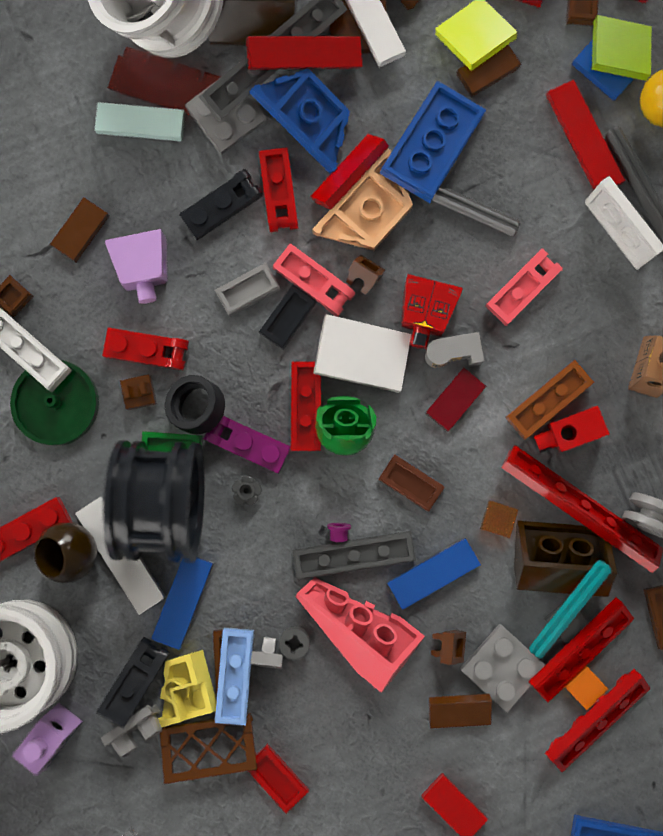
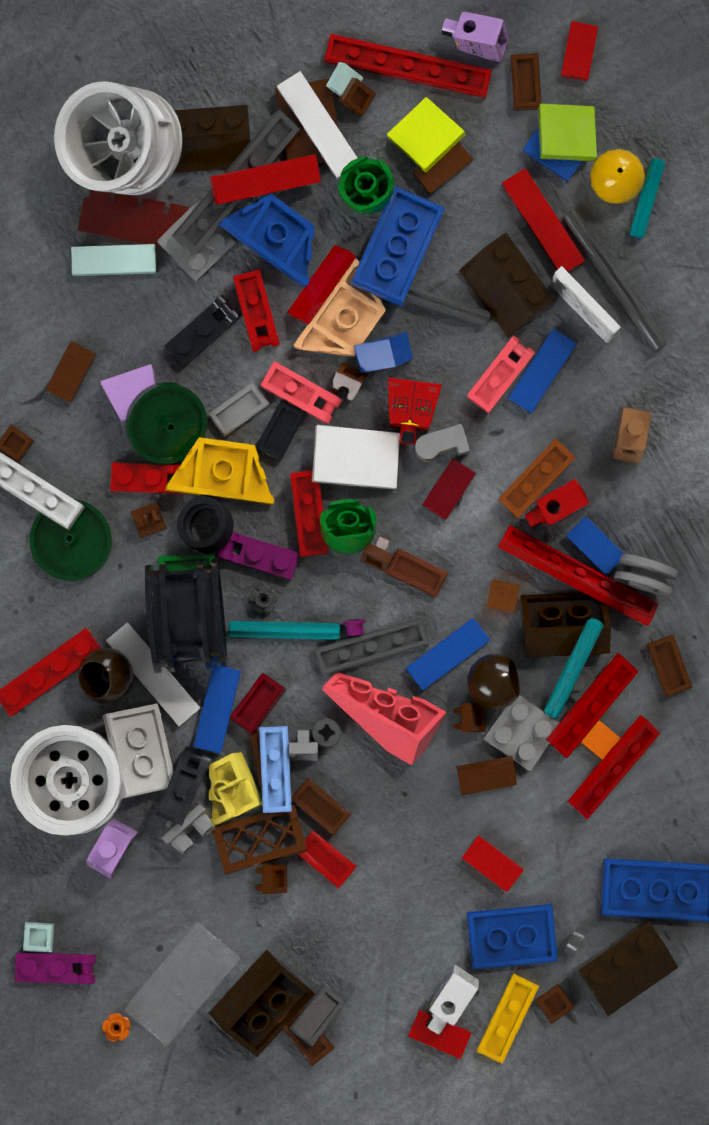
camera: 10 degrees left, 0 degrees up
(91, 636) = (140, 748): none -> white tile
(167, 292) = (165, 422): none -> dark green piece
(217, 795) = (273, 879): none -> reddish brown tile
(220, 351) = (223, 472): none -> yellow wing
(225, 601) = (257, 703): none -> dark red tile
(264, 526) = (284, 630): none -> teal axle
(278, 720) = (320, 806): none -> reddish brown tile
(372, 459) = (377, 555): none -> reddish brown tile
(404, 248) = (383, 352): none -> slope
(409, 73) = (366, 185): none -> green cylinder
(480, 612) = (493, 681): none -> dark brown helmet
(542, 194) = (507, 285): none -> dark brown slope
(567, 289) = (542, 371): none -> blue tile
(602, 478) = (595, 545): none -> blue tile

